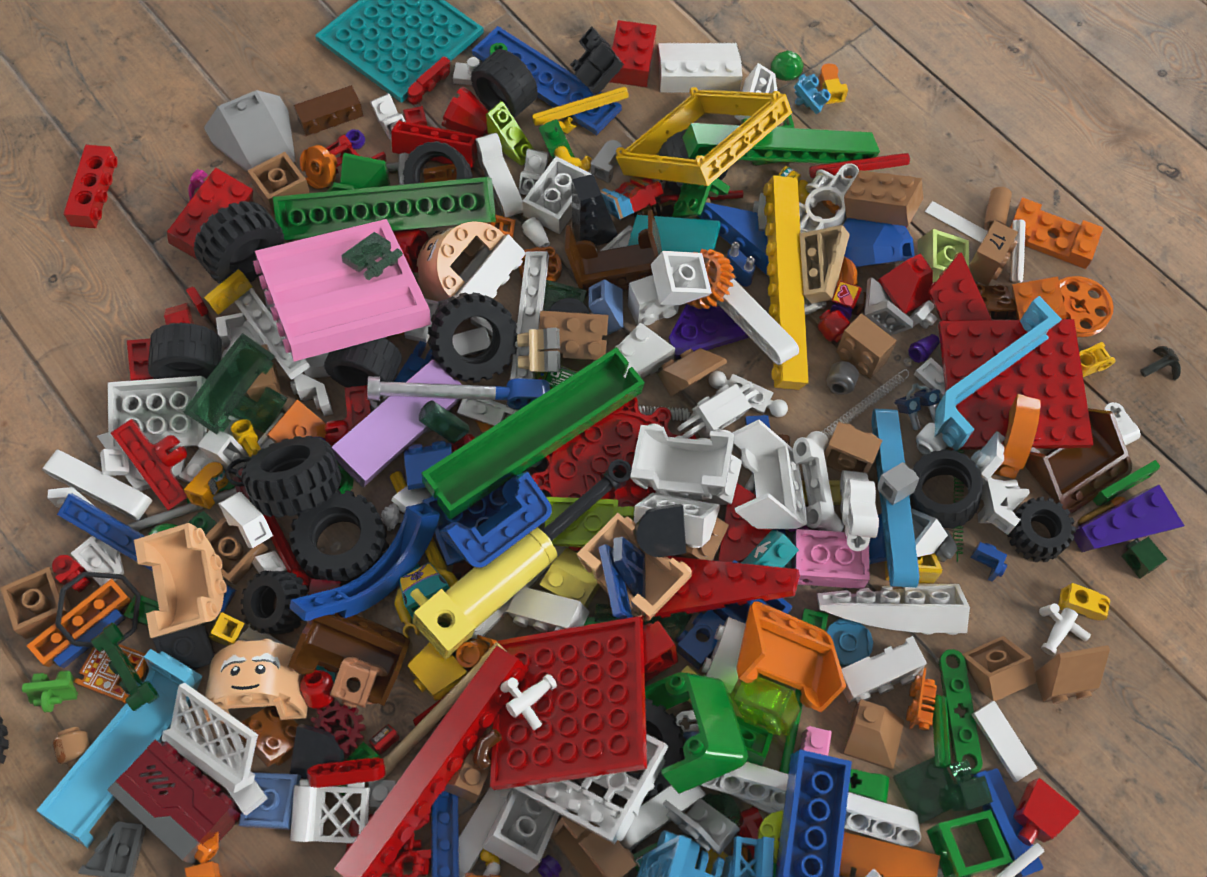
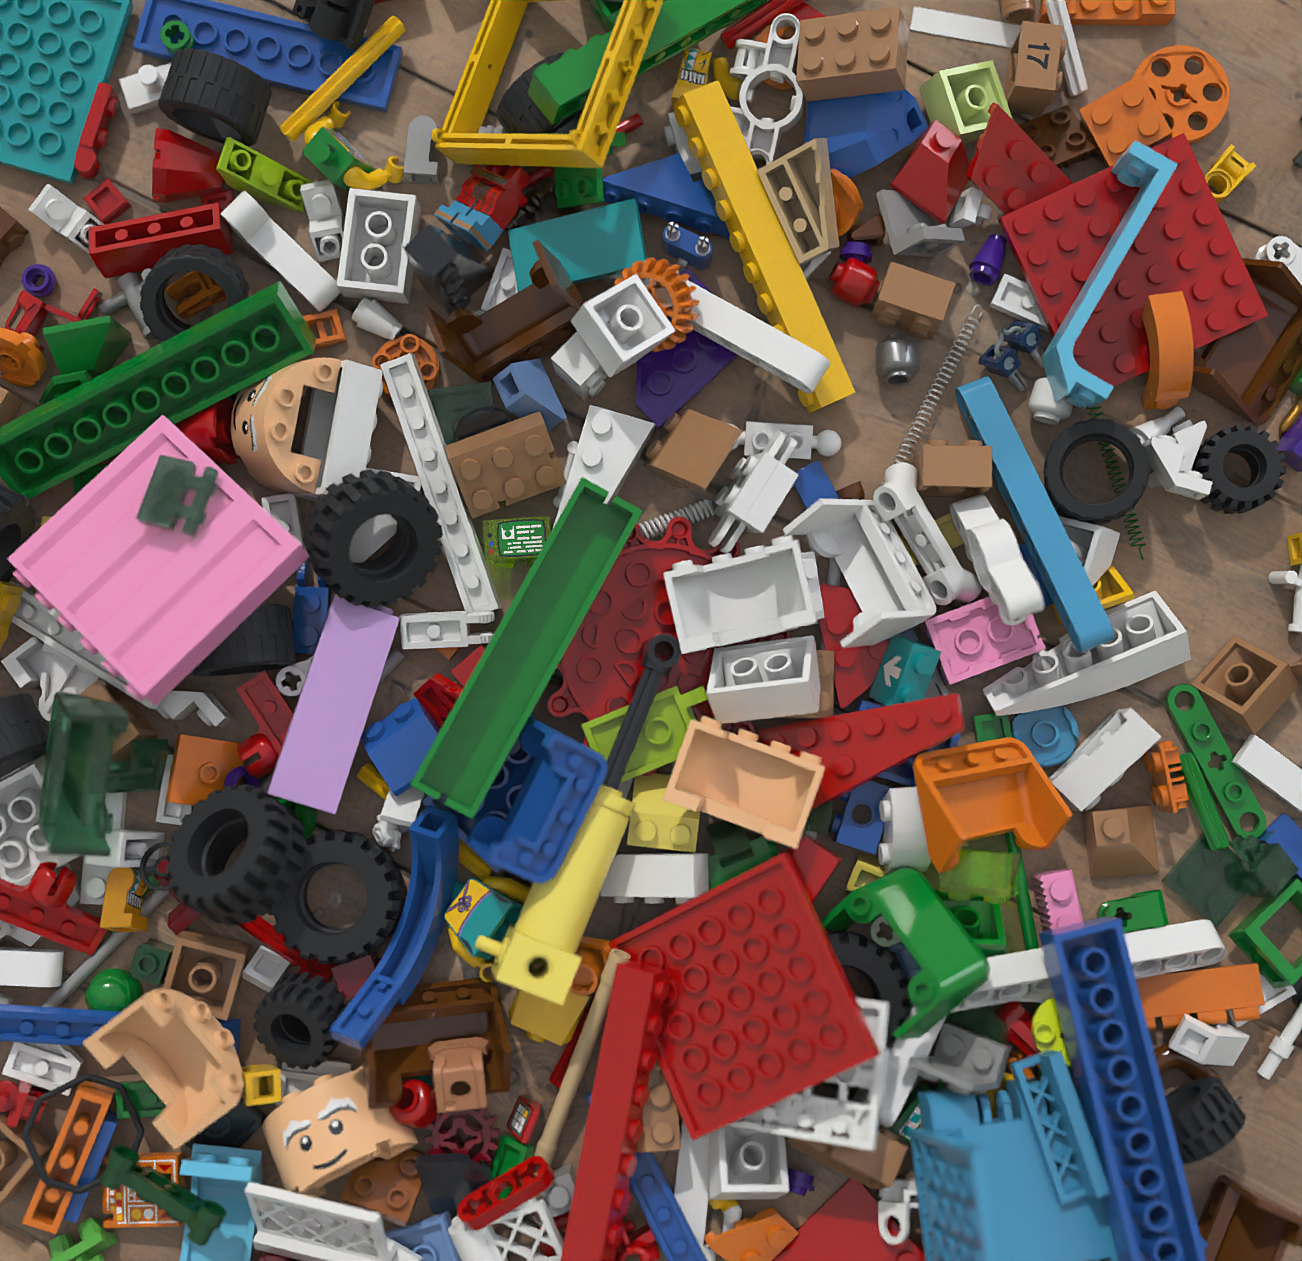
camera: 15 degrees left, 20 degrees up
(245, 435) = (144, 815): yellow axle -> none
(250, 521) = (208, 939): white slope -> none
(443, 422) = (394, 680): clear green brick -> none
(482, 749) = (659, 1095): reddish brown arm -> none
(516, 393) = (472, 591): flat silver piece -> none
(523, 701) = (687, 1025): white piece -> none
(540, 340) = (479, 515): hips -> none
(615, 585) = (729, 813): blue tile -> none
(631, 564) = (737, 779): dark blue wing -> none
(662, 531) = (760, 719): black tile -> none
(846, 294) = (856, 232): tile -> none
(898, 483) = (1037, 503): light grey brick -> none
(947, 548) = (1126, 549): dark grey arm -> none
(990, 456) = (1139, 402): white wing -> none
(991, 557) = (1180, 534): blue bracket -> none

